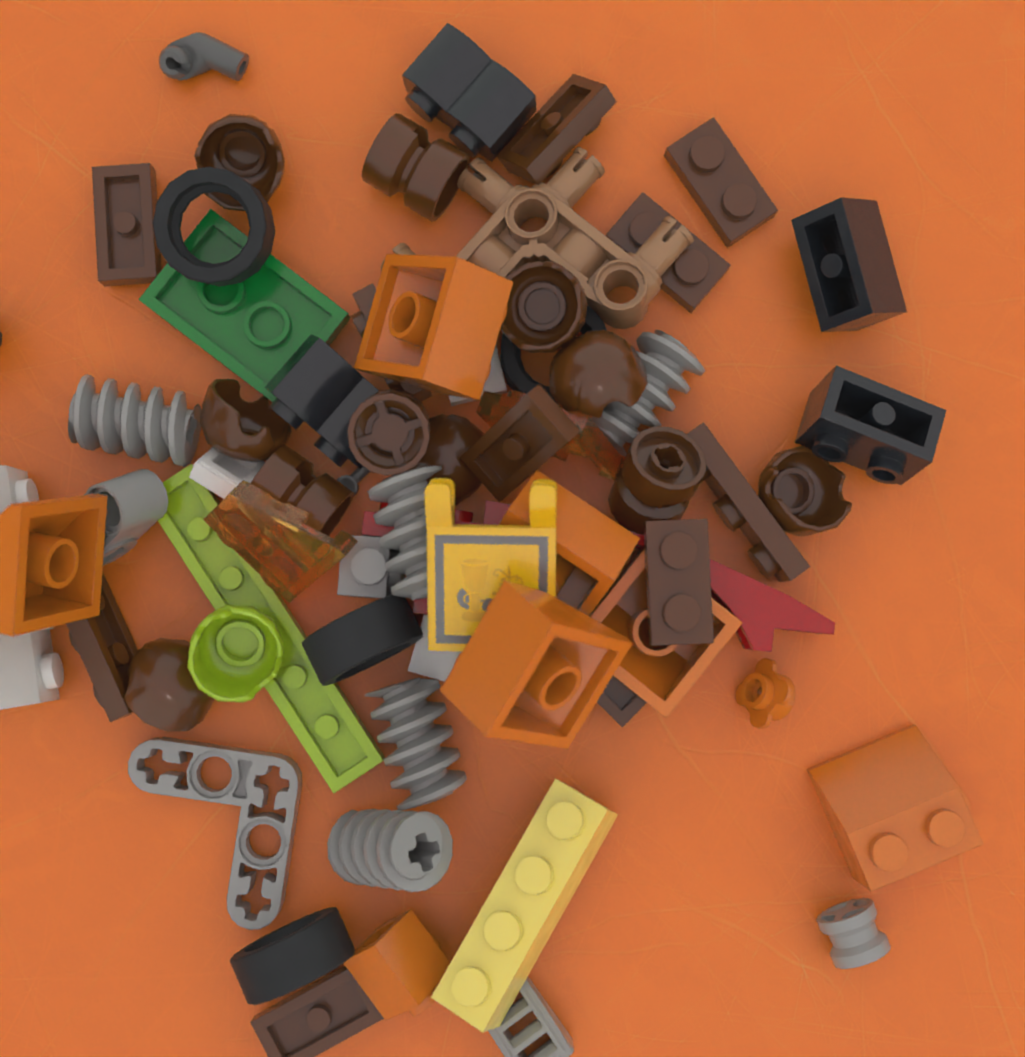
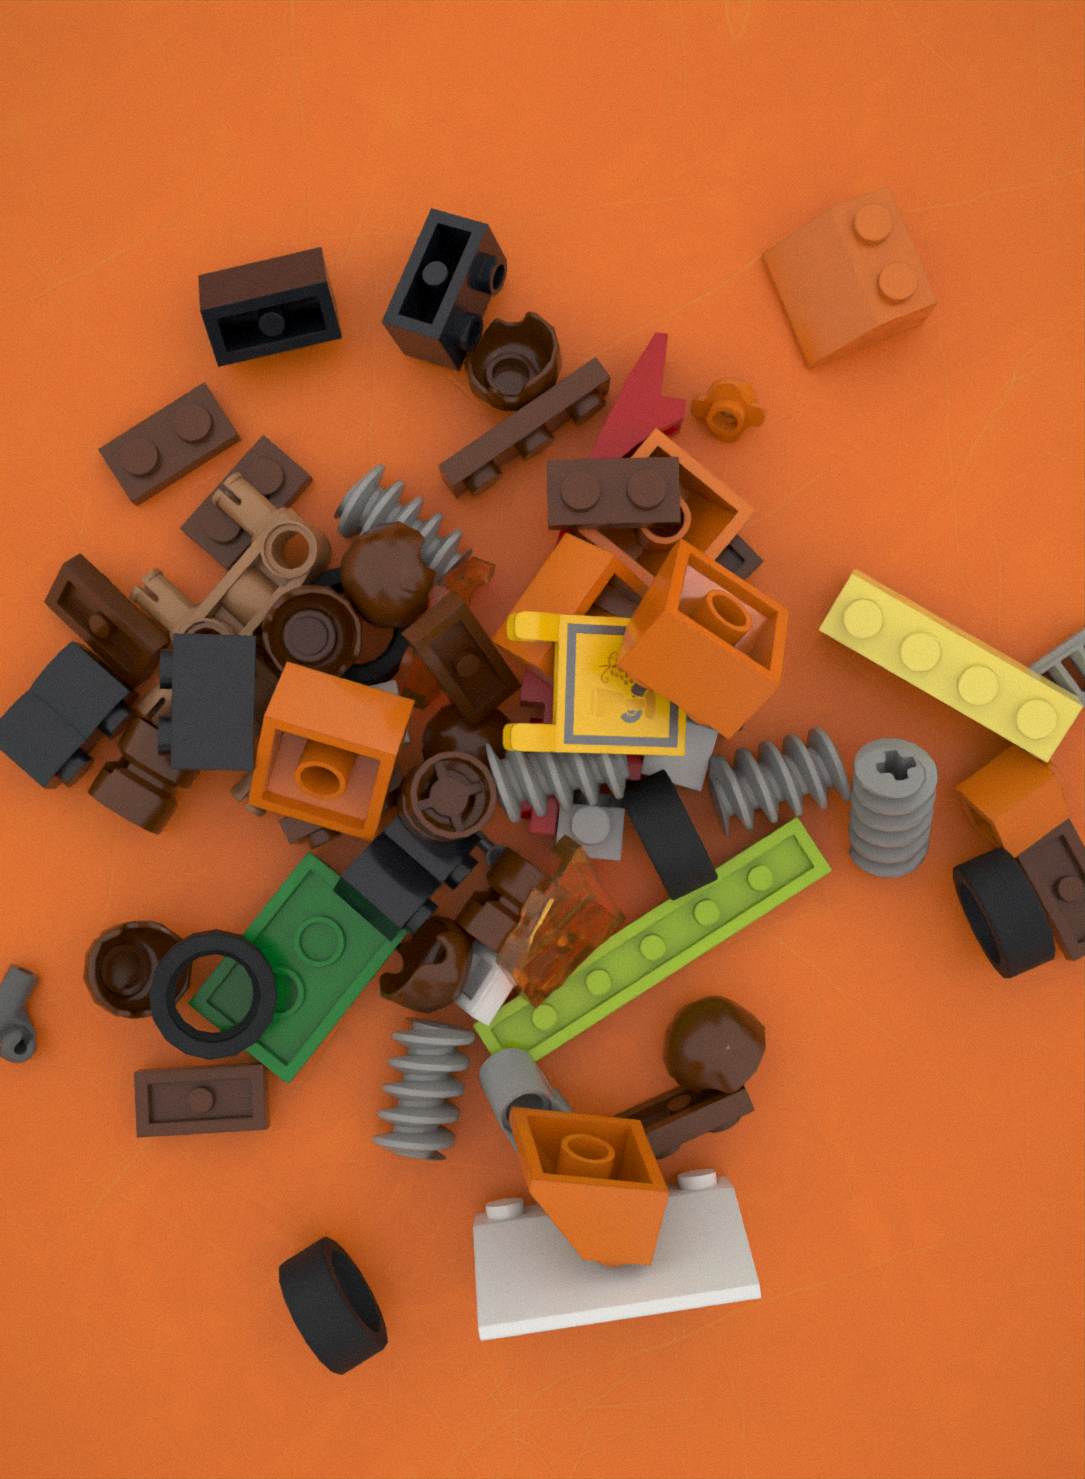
camera: 85 degrees left, 0 degrees up
(235, 653) = (682, 970): lime hair -> none
(242, 791) = (829, 973): light grey beam -> none
(474, 213) = (210, 702): none -> black brick
(656, 478) = (499, 517): reddish brown wheel -> none
(853, 933) = (980, 324): light grey wheel -> none

